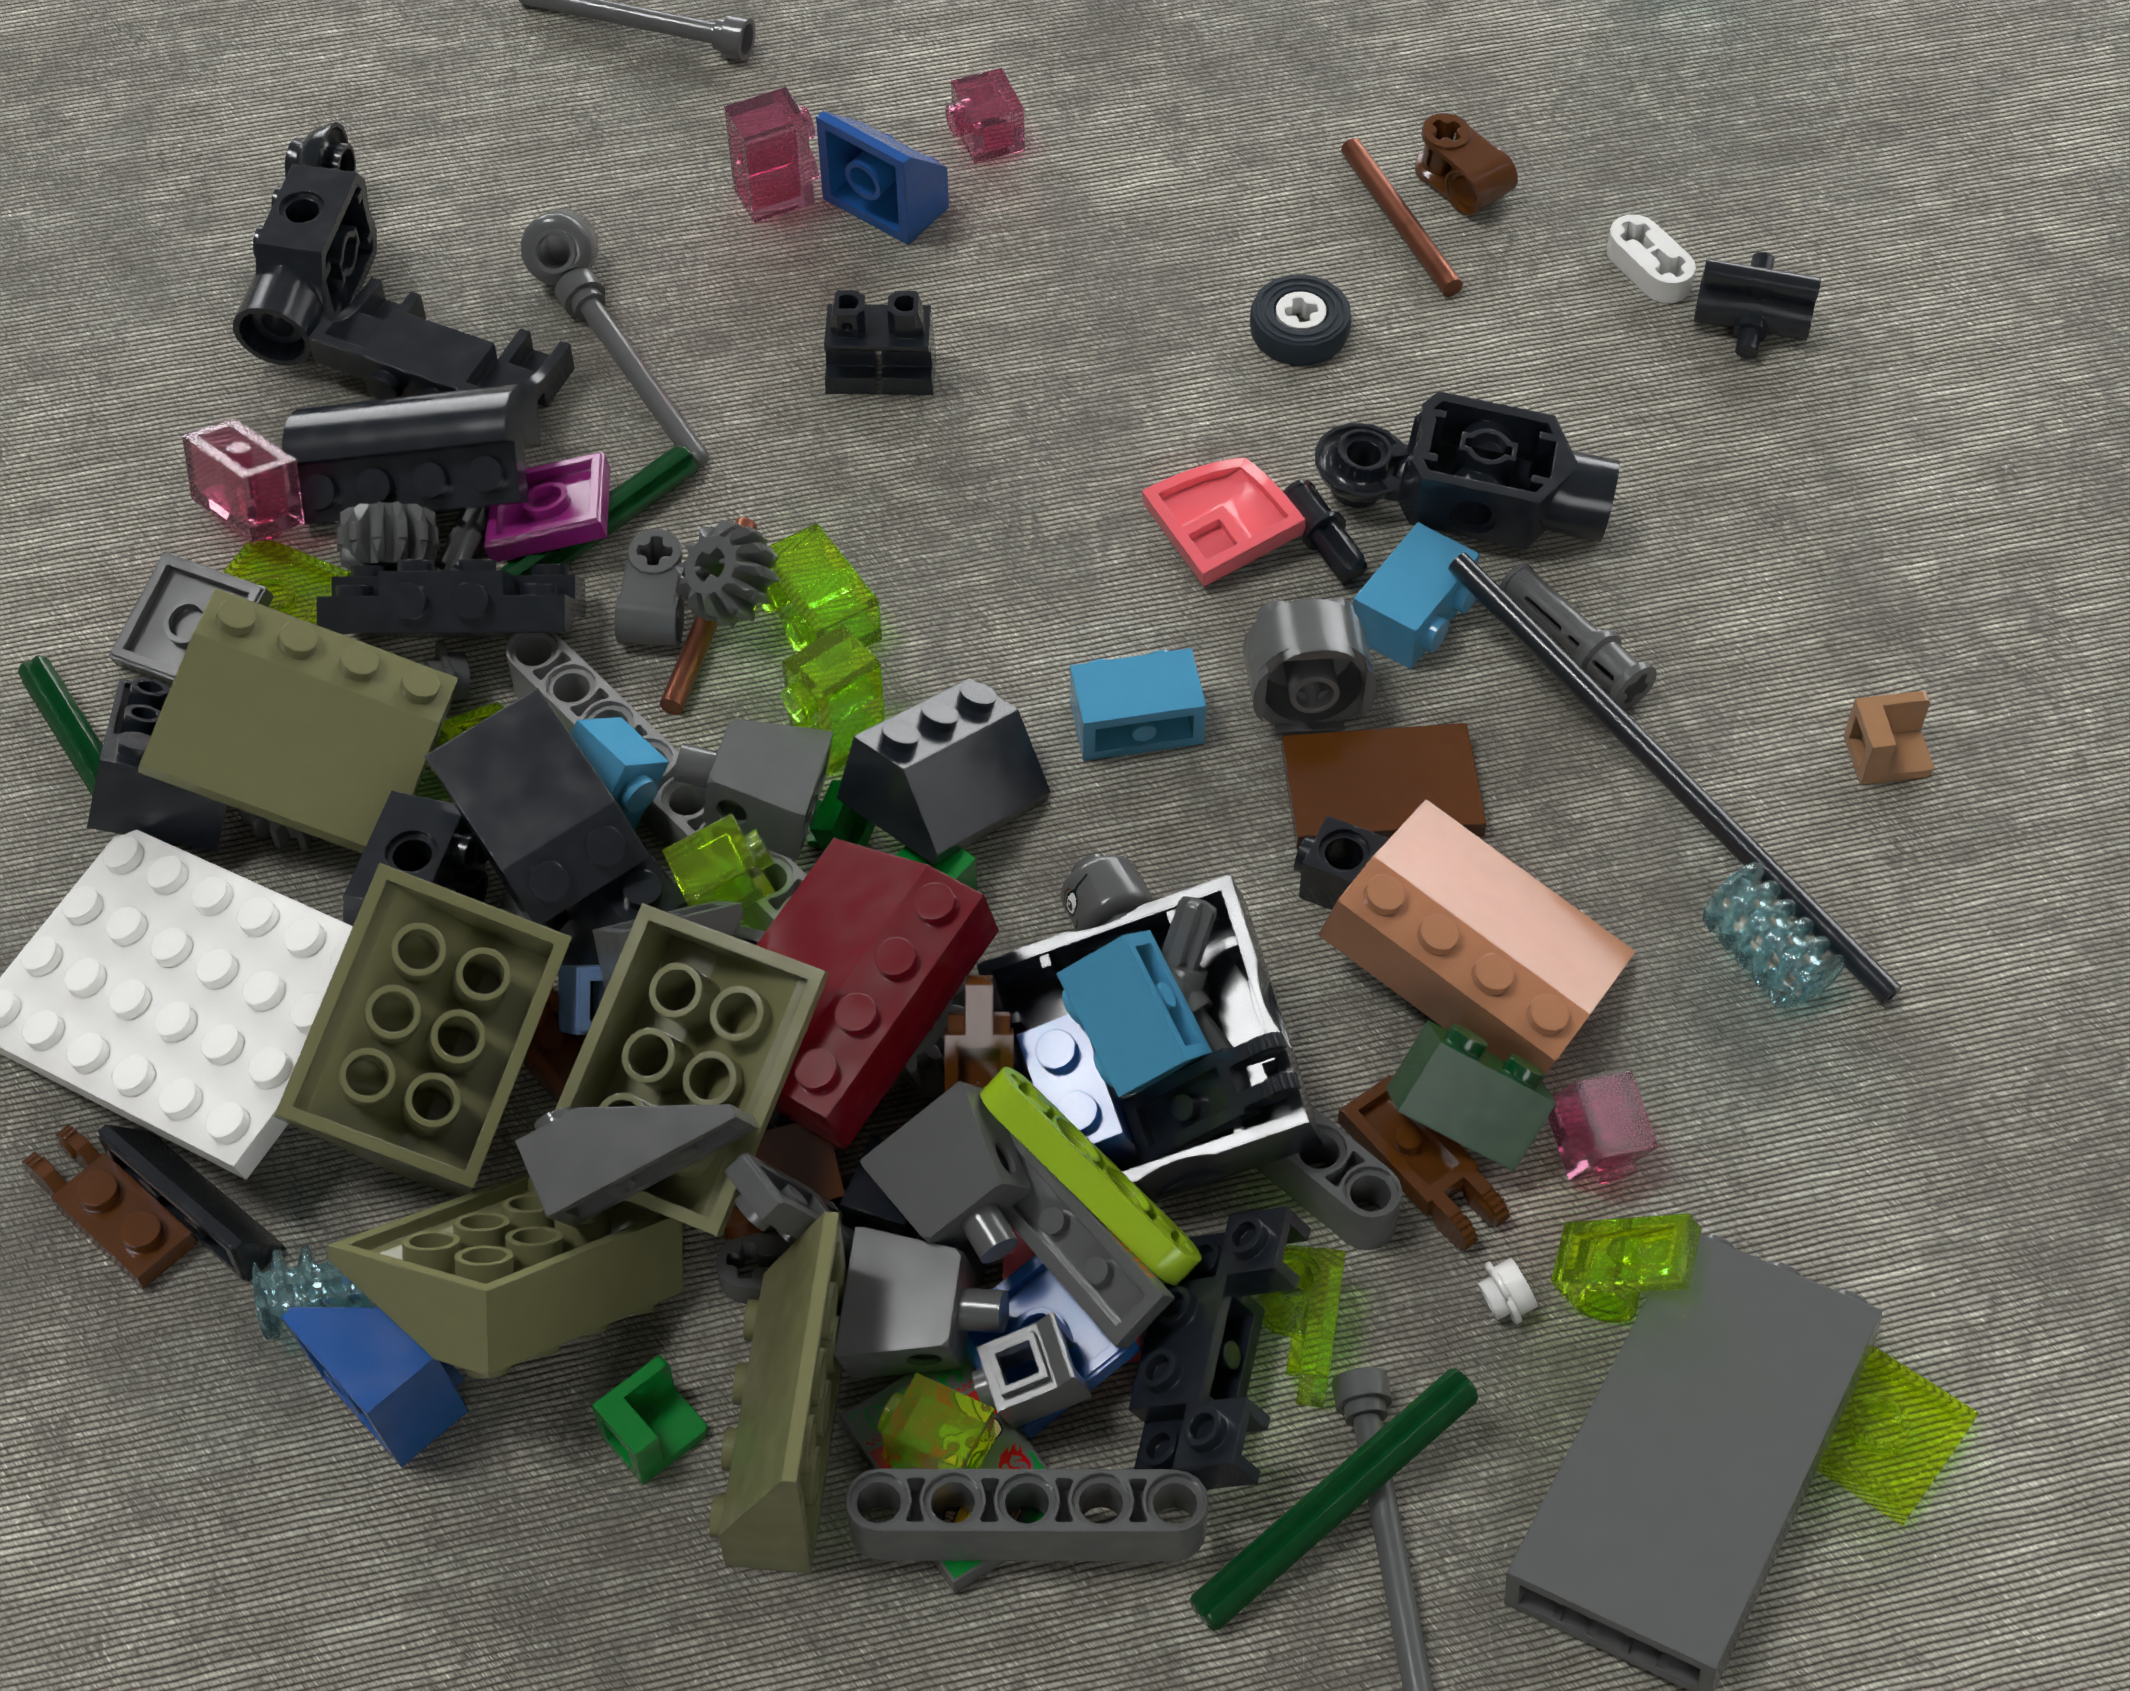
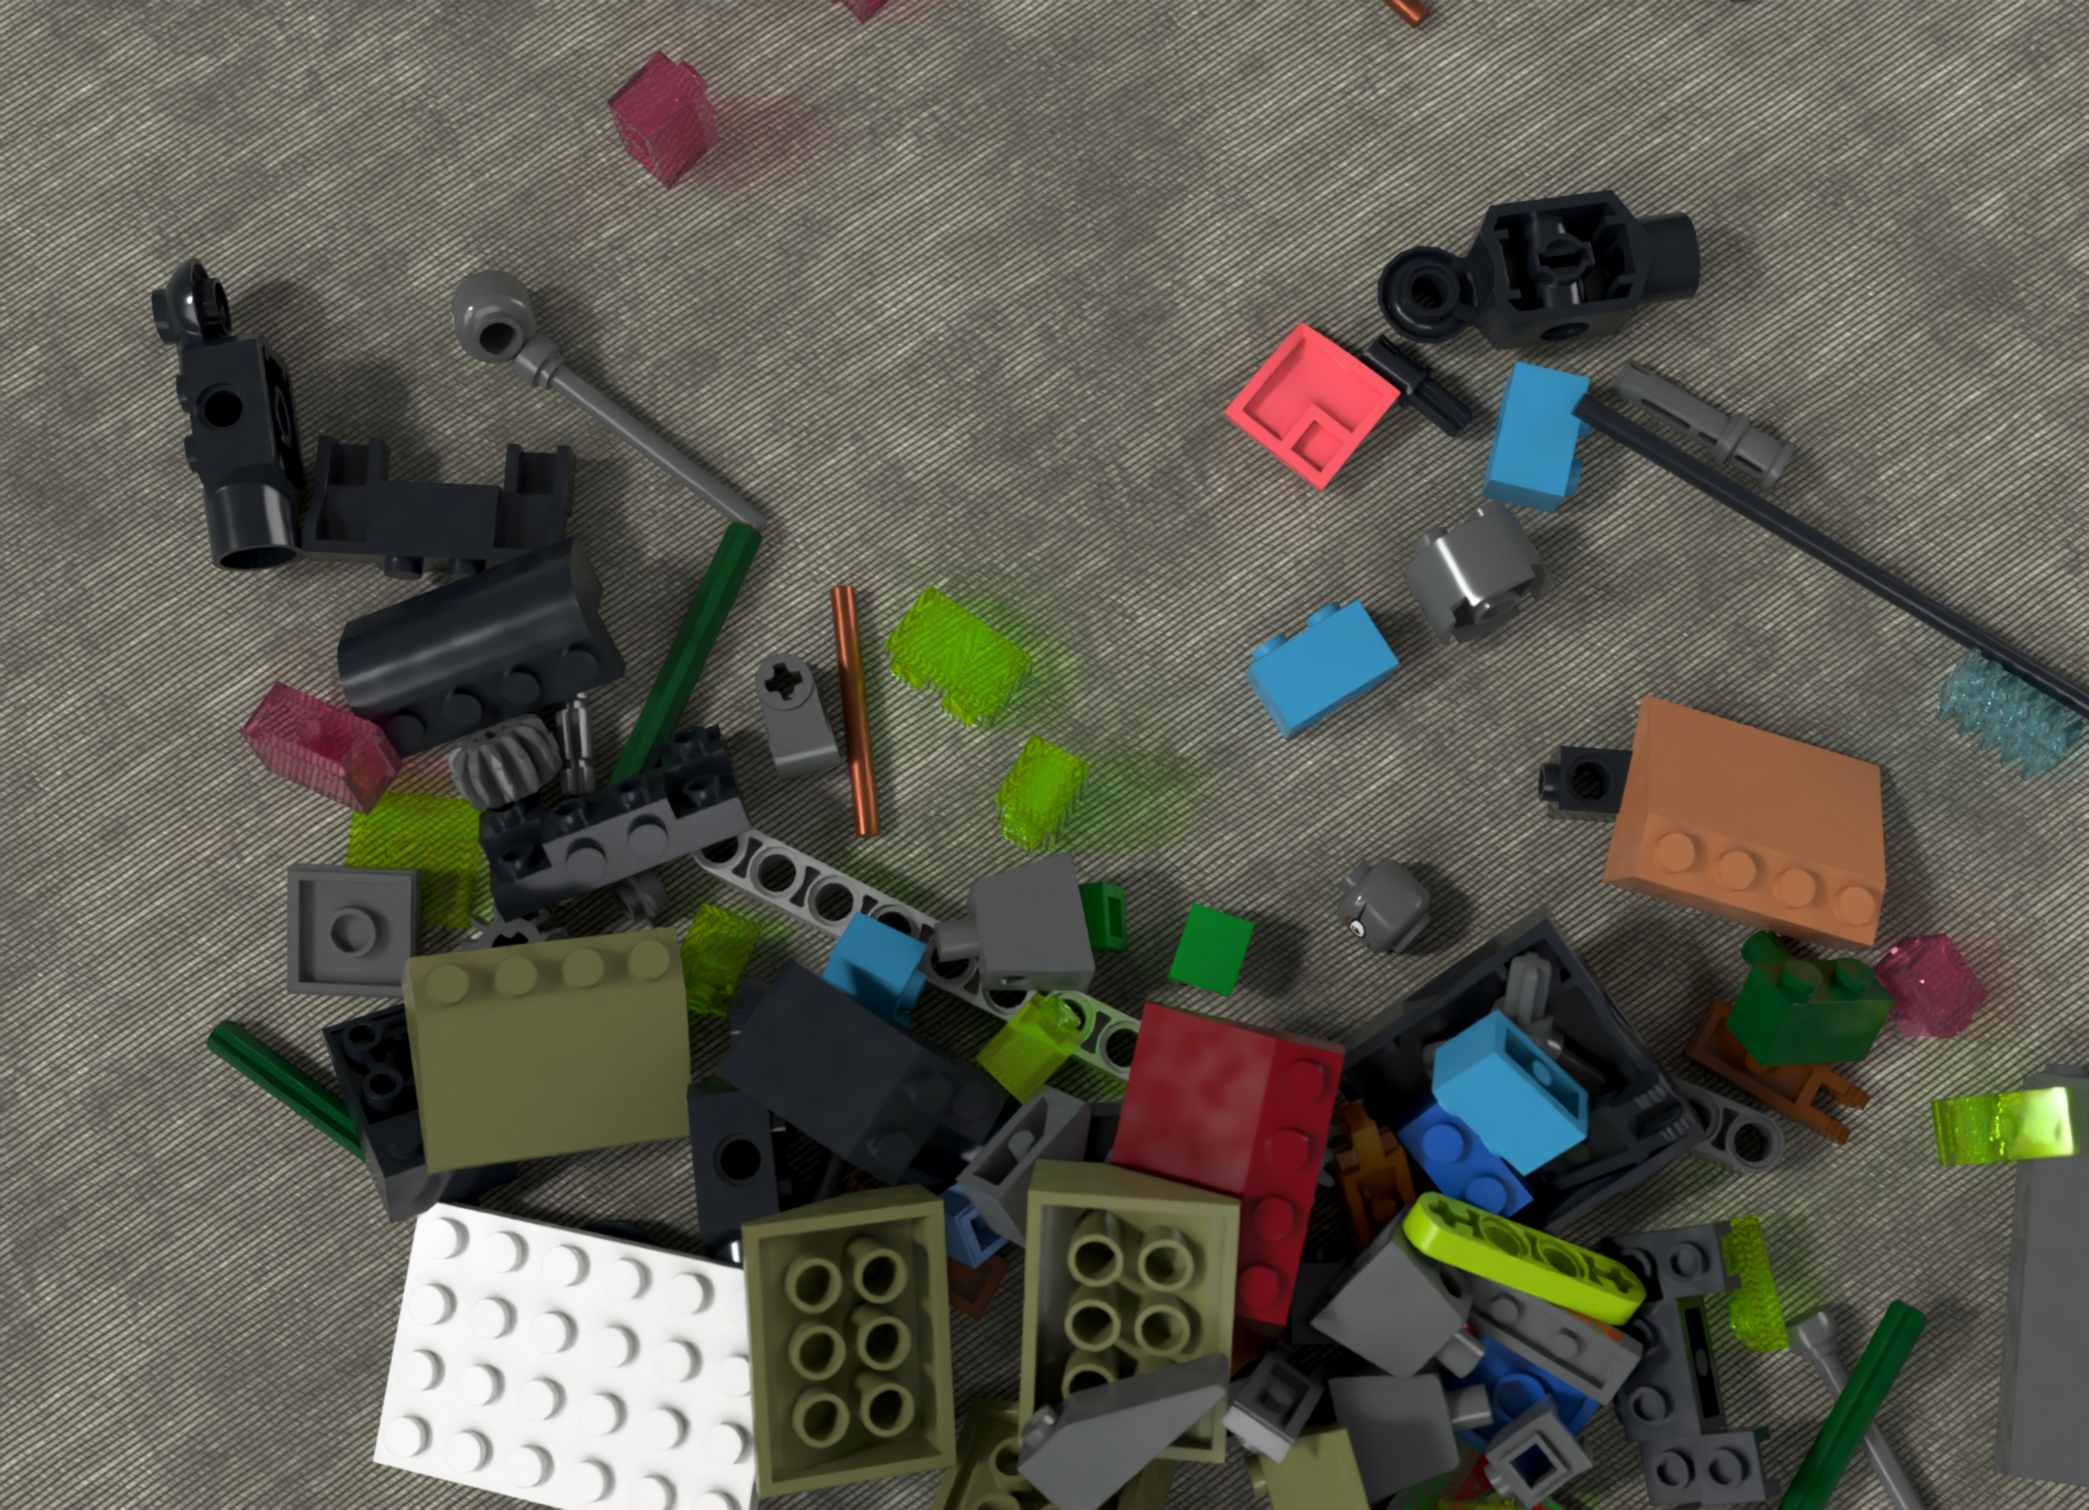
camera: 20 degrees left, 25 degrees up
(563, 509) = (662, 654): magenta tile -> none
(727, 573) = (876, 709): dark grey gear -> none
(861, 331) = (890, 314): black hips -> none
(879, 177) = (787, 96): blue slope -> none
(945, 771) = (1189, 840): black slope -> none
(1295, 342) = (1281, 149): black bush -> none
(1381, 777) = (1581, 667): reddish brown tile -> none
(1507, 1291) = (1896, 1178): white plate -> none
(1888, 738) = (2033, 440): medium nougat panel -> none

